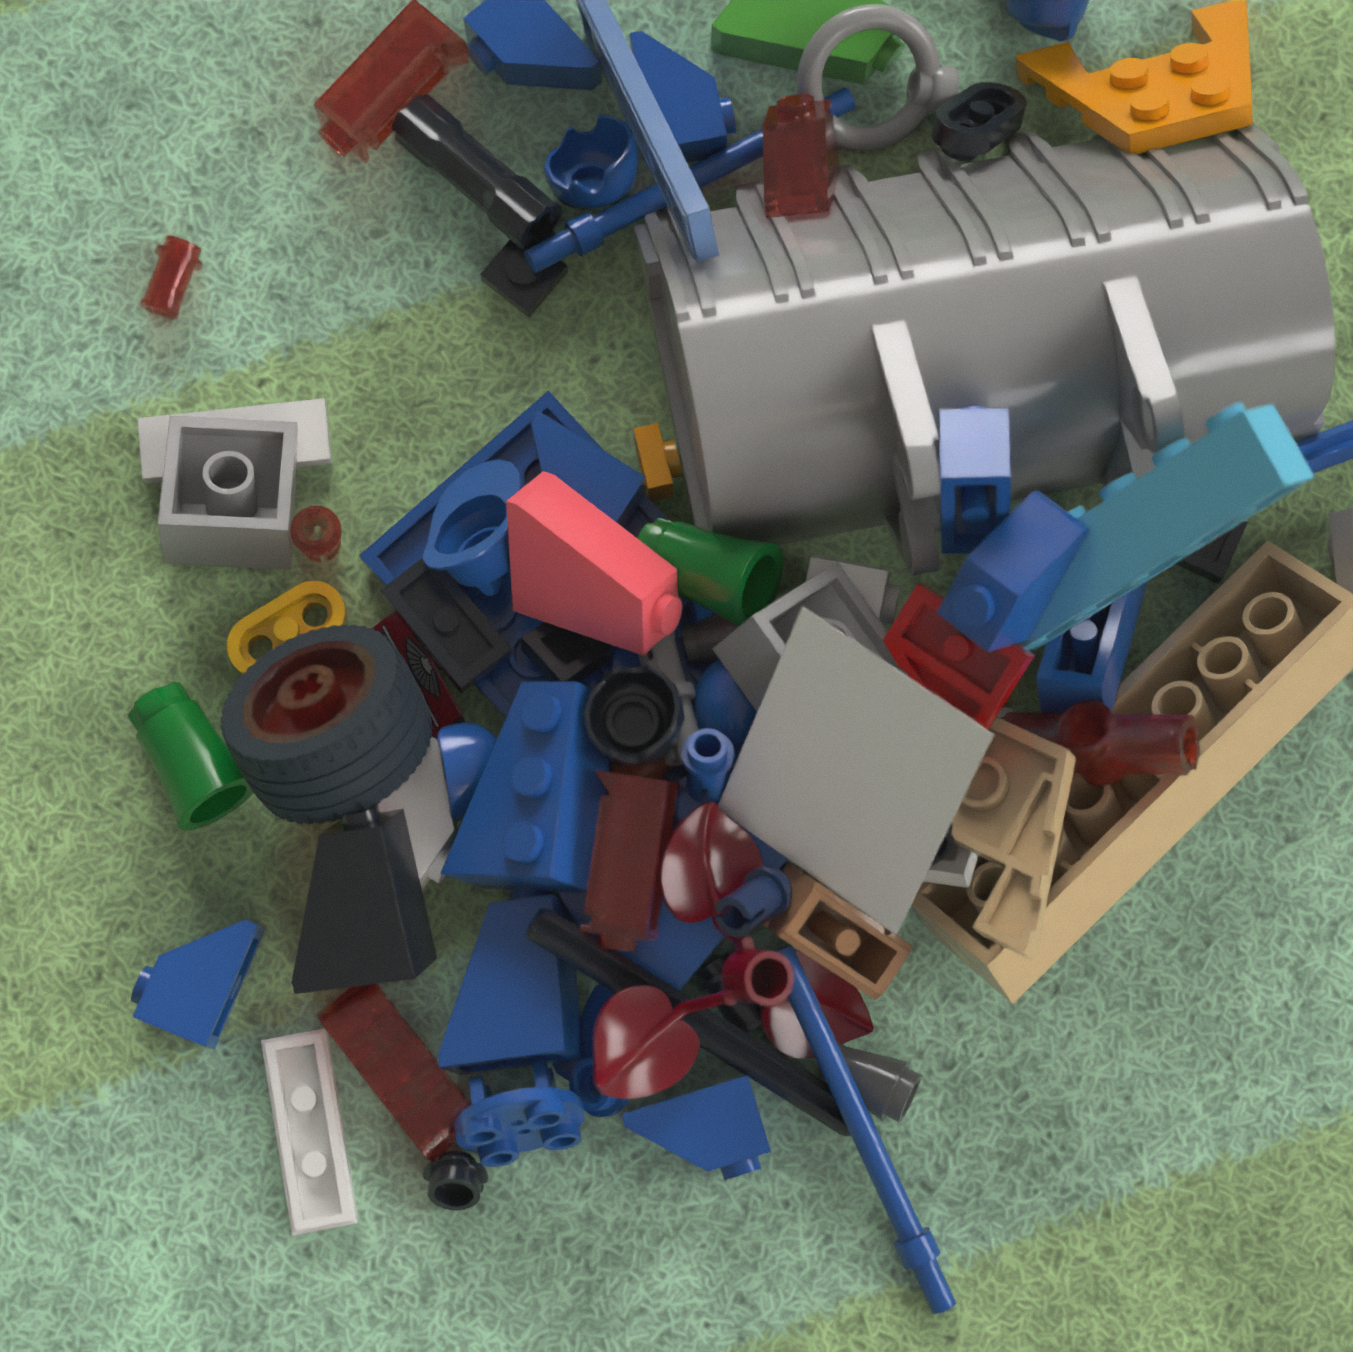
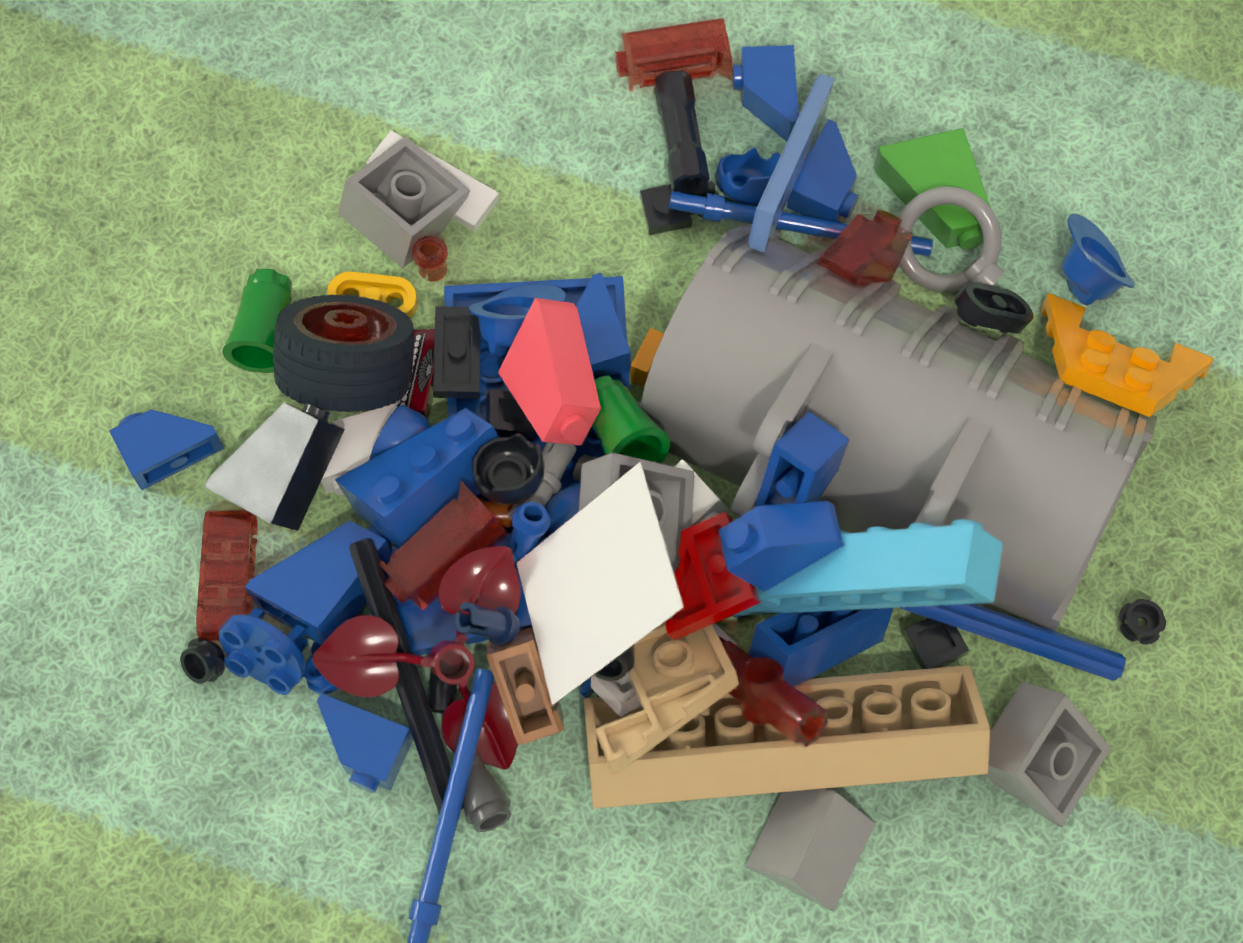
camera: 40 degrees right, 10 degrees down
(171, 276) = (472, 72): clear red pin -> none
(309, 1132) = (150, 574): white tile -> none
(1248, 858) = (811, 844): none -> light grey slope

